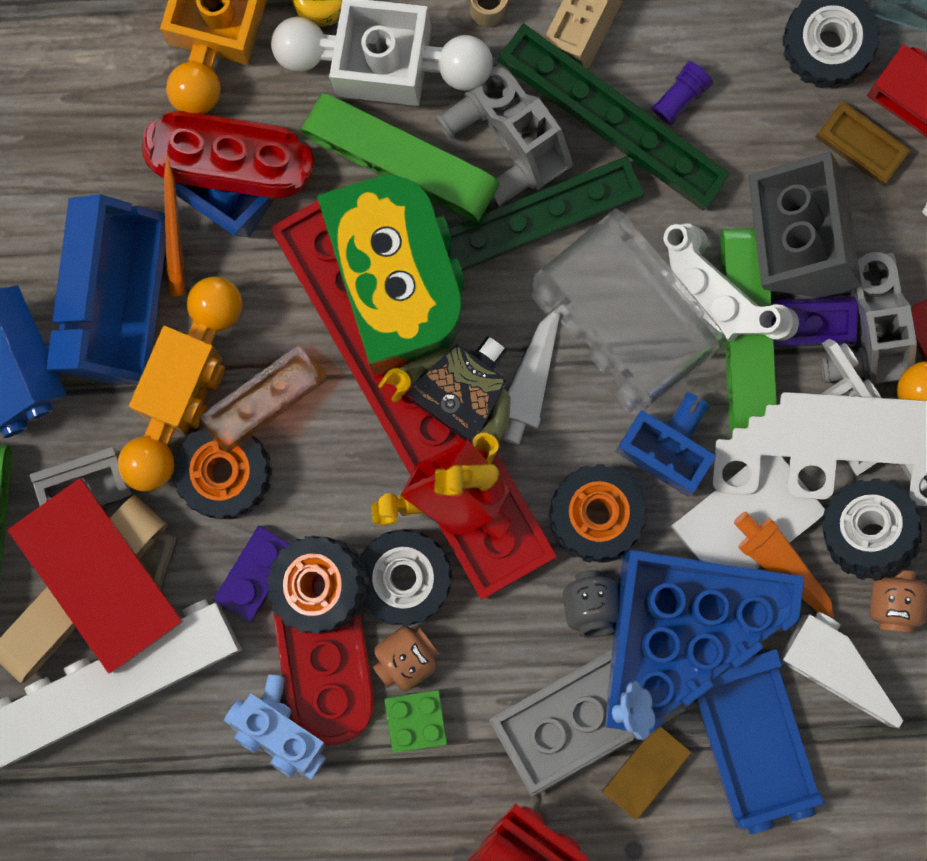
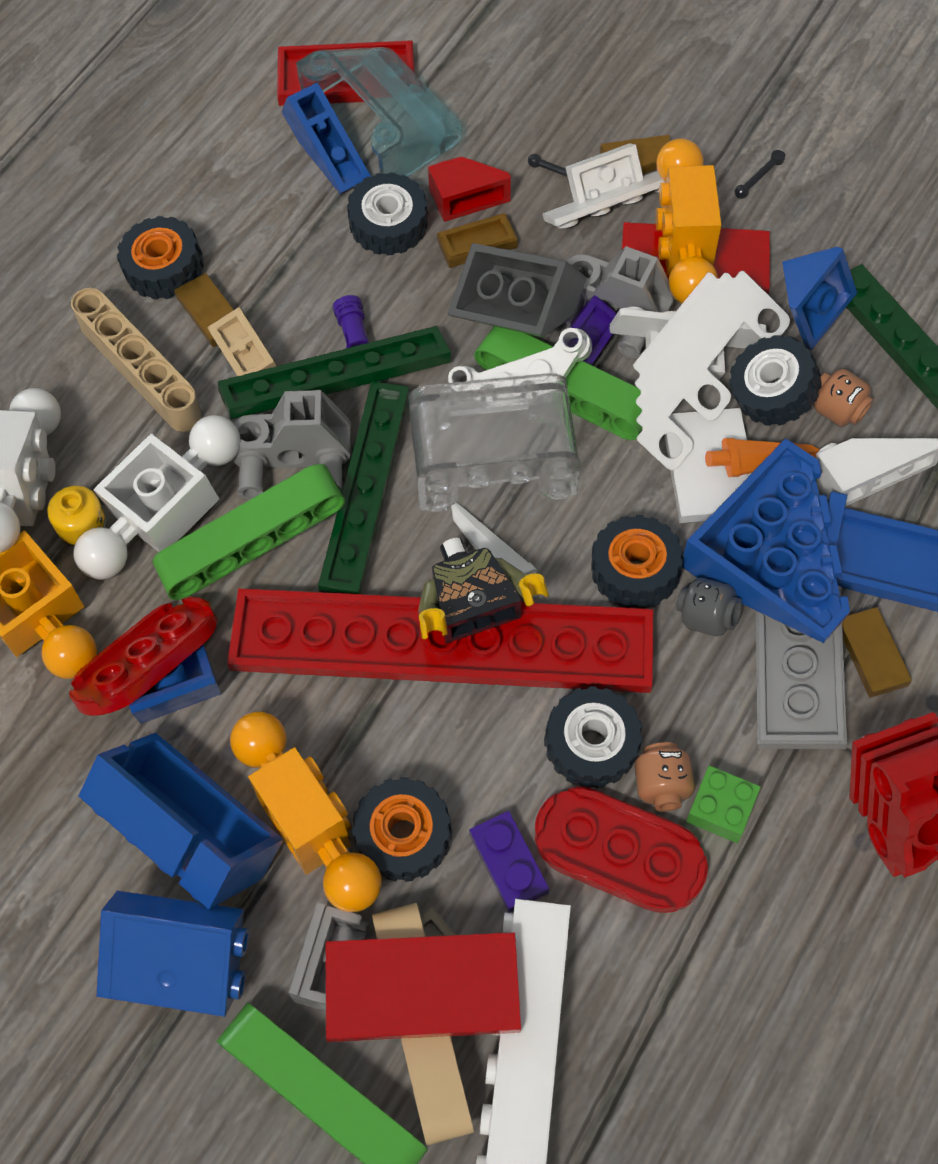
camera: 55 degrees left, 20 degrees down
(174, 255) = (175, 736): orange bar -> none
(262, 398) = (365, 755): clear orange tile -> none
(267, 726) = (658, 926): light blue brick -> none
(292, 585) = (528, 800): black wheel -> none
(395, 268) = (335, 575): brick -> none
(452, 489) = (550, 638): red torso -> none
(635, 711) = (825, 606): light blue plant -> none
(667, 448) = (619, 480): blue brick -> none

